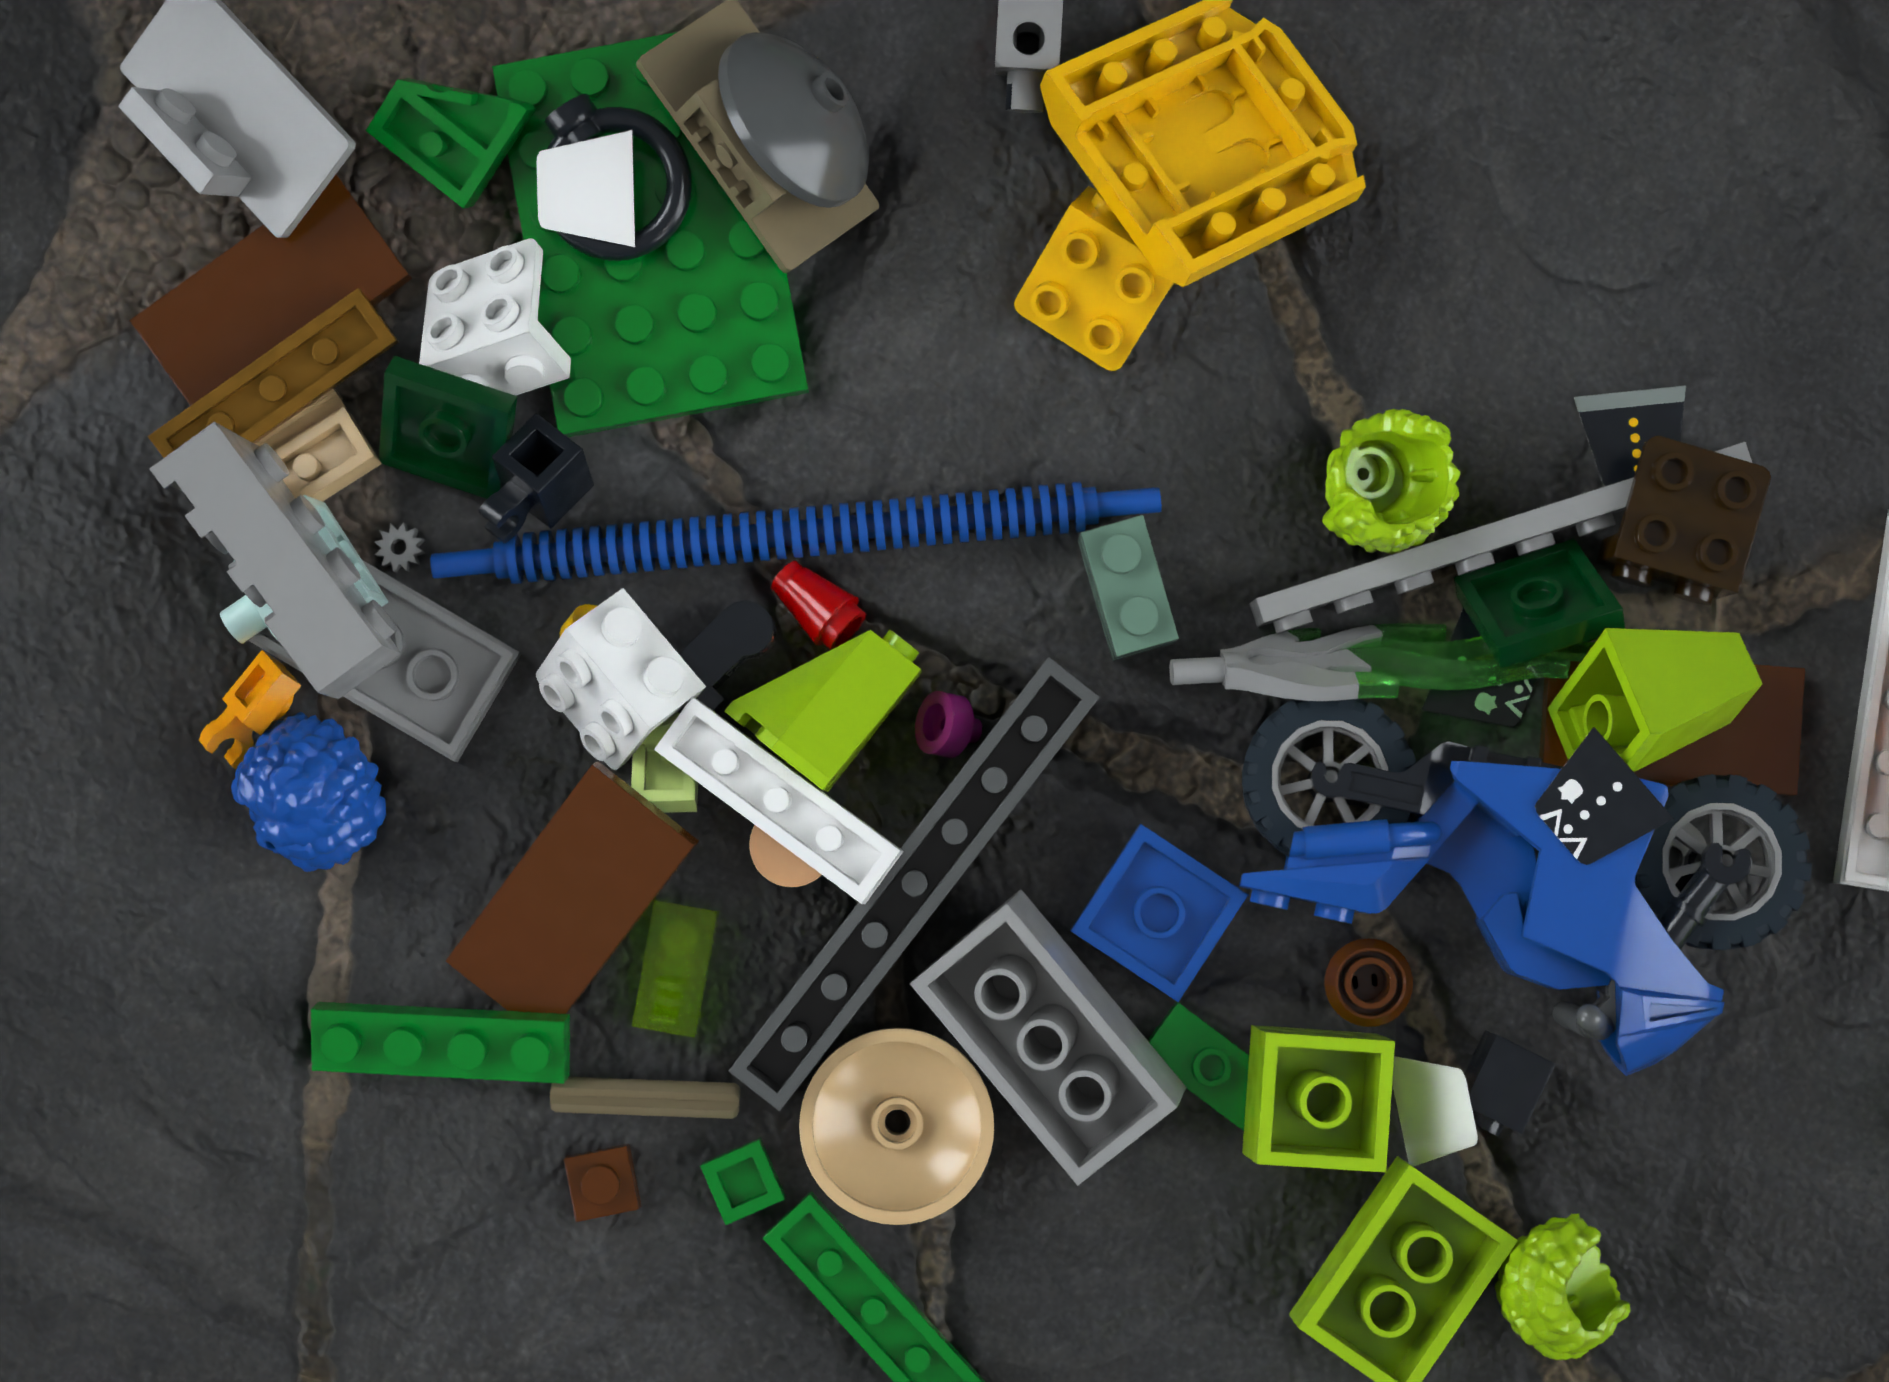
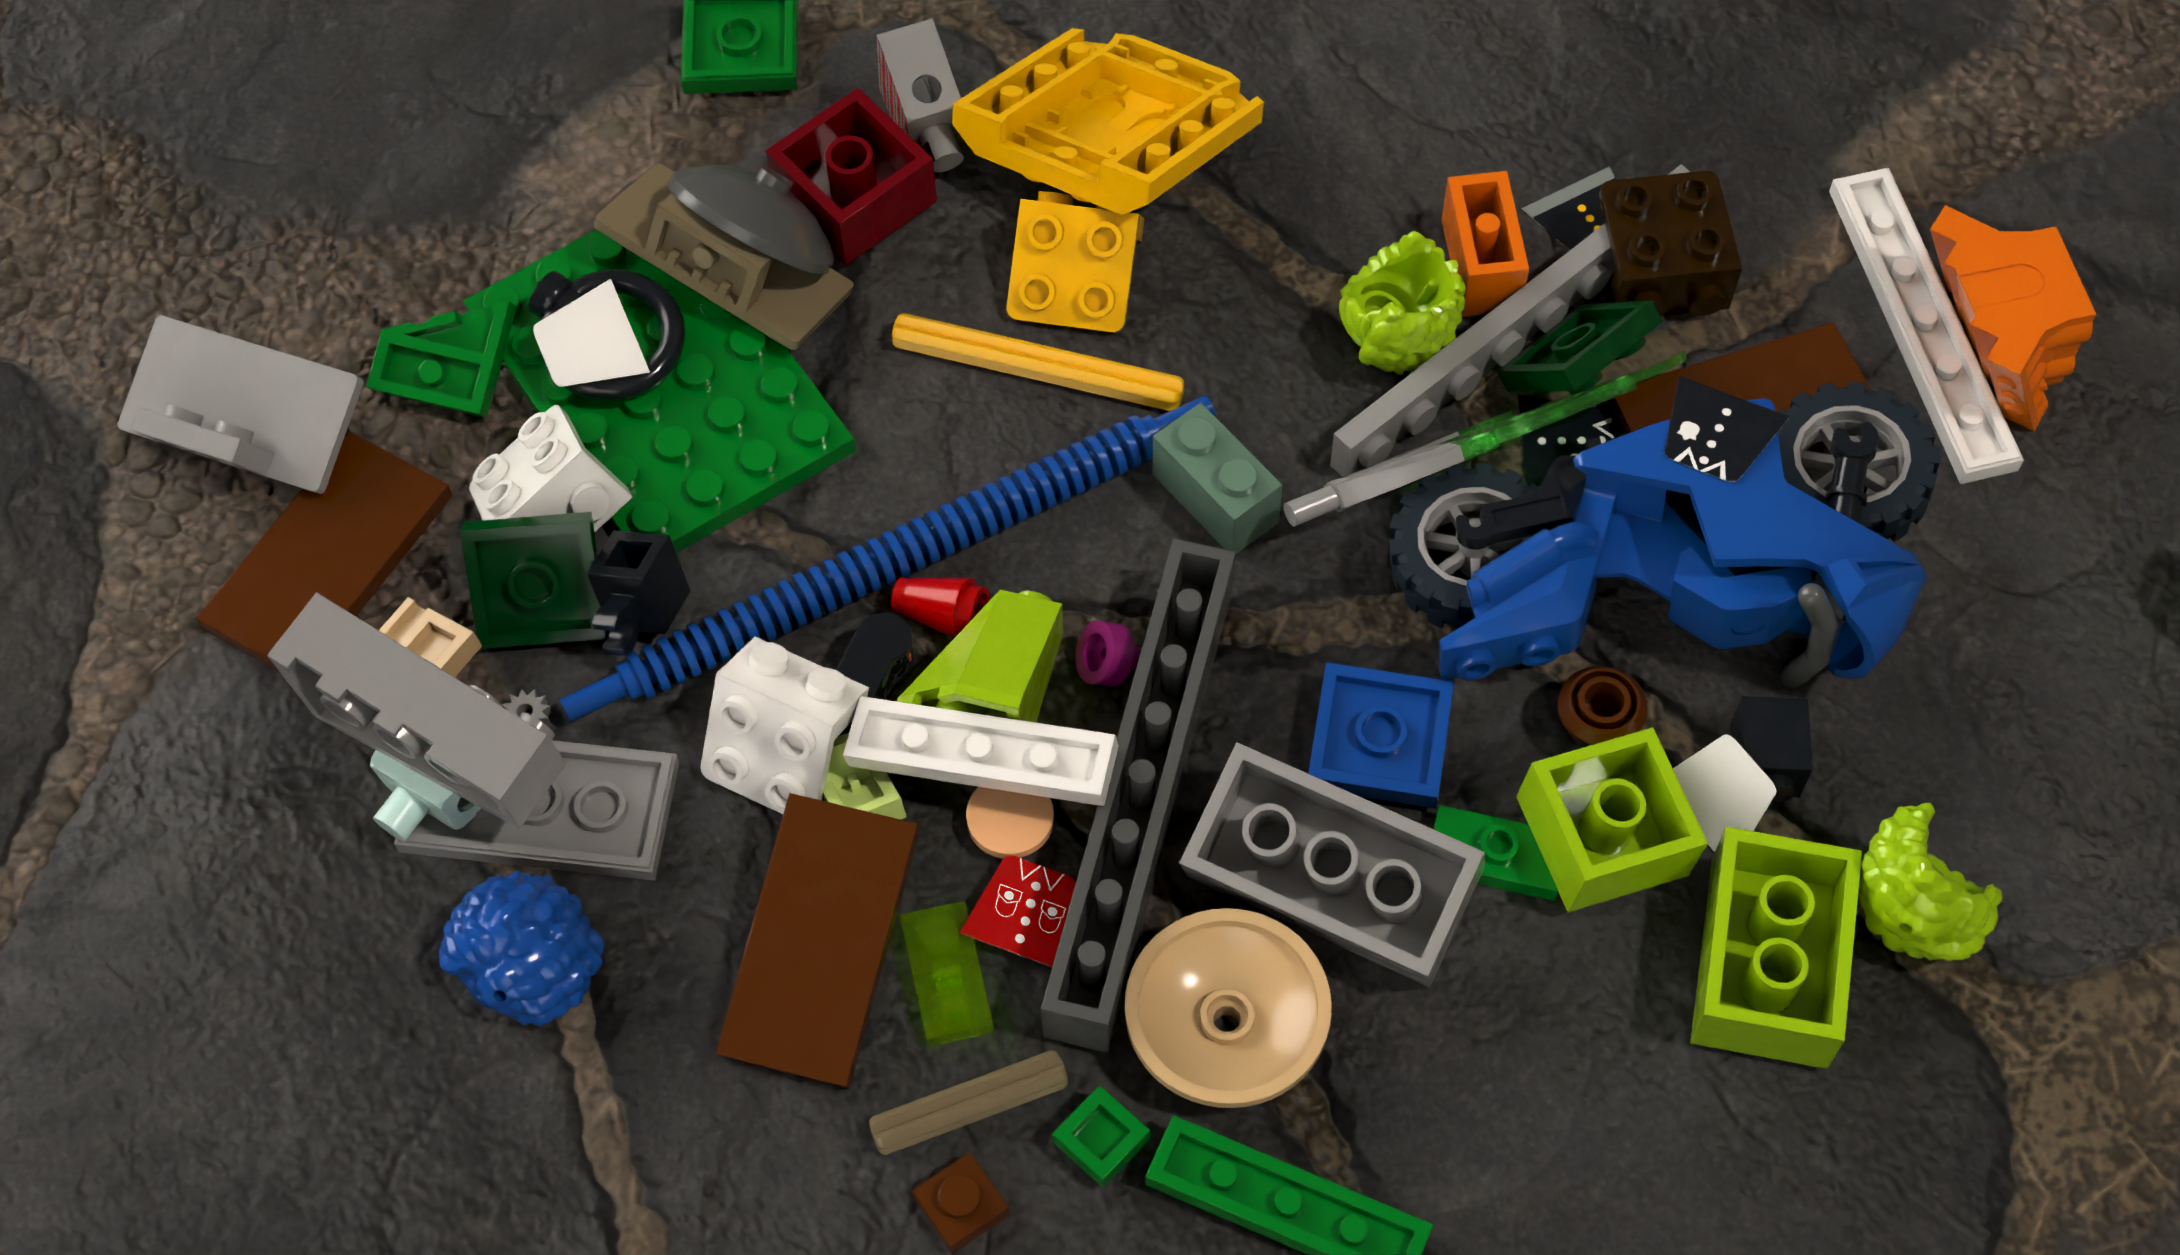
camera: 25 degrees left, 25 degrees down
(253, 703) = (434, 890): light orange plate -> none
(287, 375) = (373, 589): pearl gold plate -> none
(440, 1042) = (740, 1129): green plate -> none
(768, 941) = (1022, 910): none -> red sticker
(921, 91) = (855, 173): none -> dark red brick
(1018, 374) = (1038, 362): none -> yellow axle
(1507, 442) = (1484, 239): none -> orange brick
(1654, 691) = (1726, 346): lime slope -> none

